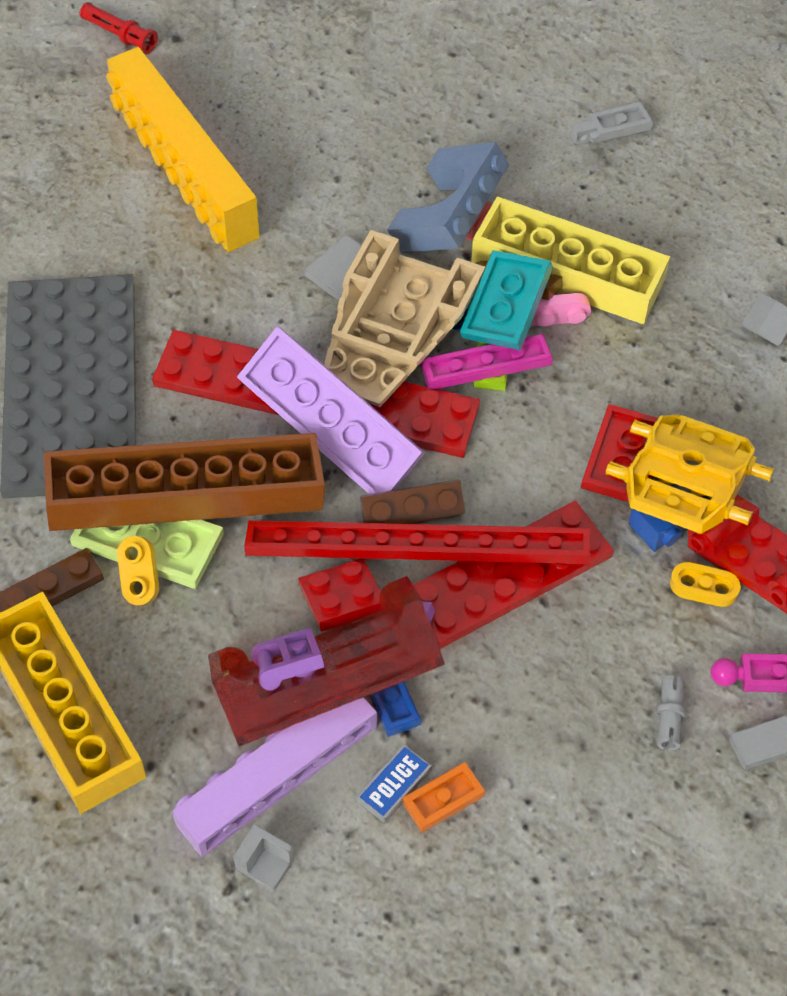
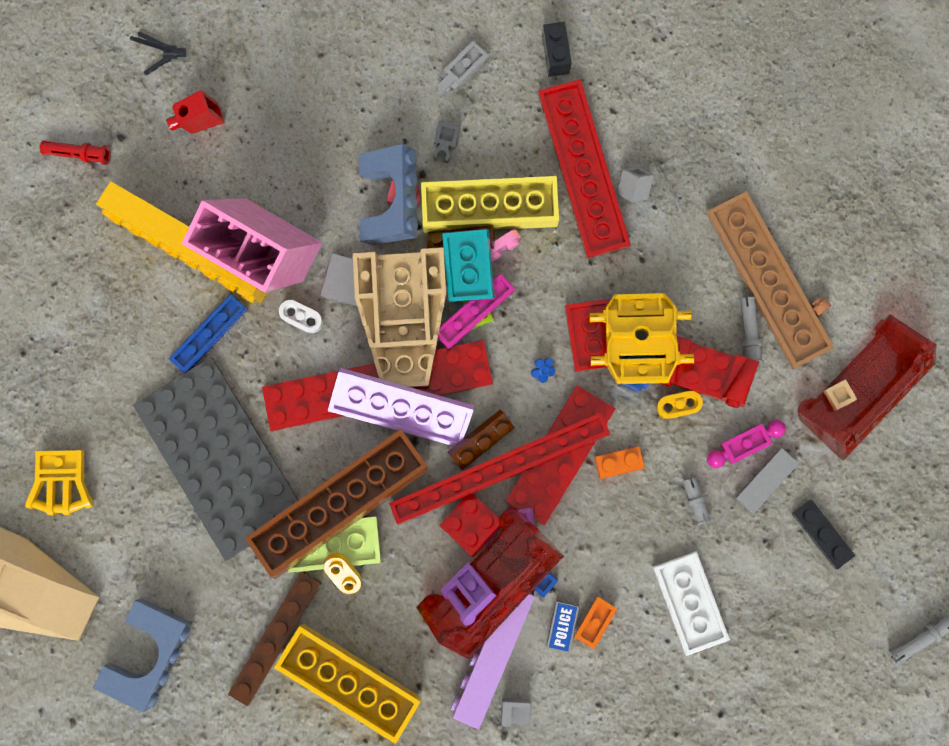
camera: 25 degrees left, 25 degrees up
(147, 252) = (208, 333): none -> blue tile
(261, 148) = (251, 243): none -> bright pink brick
(272, 284) = (301, 316): none -> white plate
(275, 41) = (195, 113): none -> red torso
(540, 464) = (543, 369): none -> blue plant
(554, 180) = (446, 138): none -> dark grey plate
(585, 618) = (619, 462): none -> orange plate
(596, 844) = (691, 603): none -> white tile
(710, 281) = (584, 169): none -> red plate
(739, 147) = (556, 49): none -> black brick

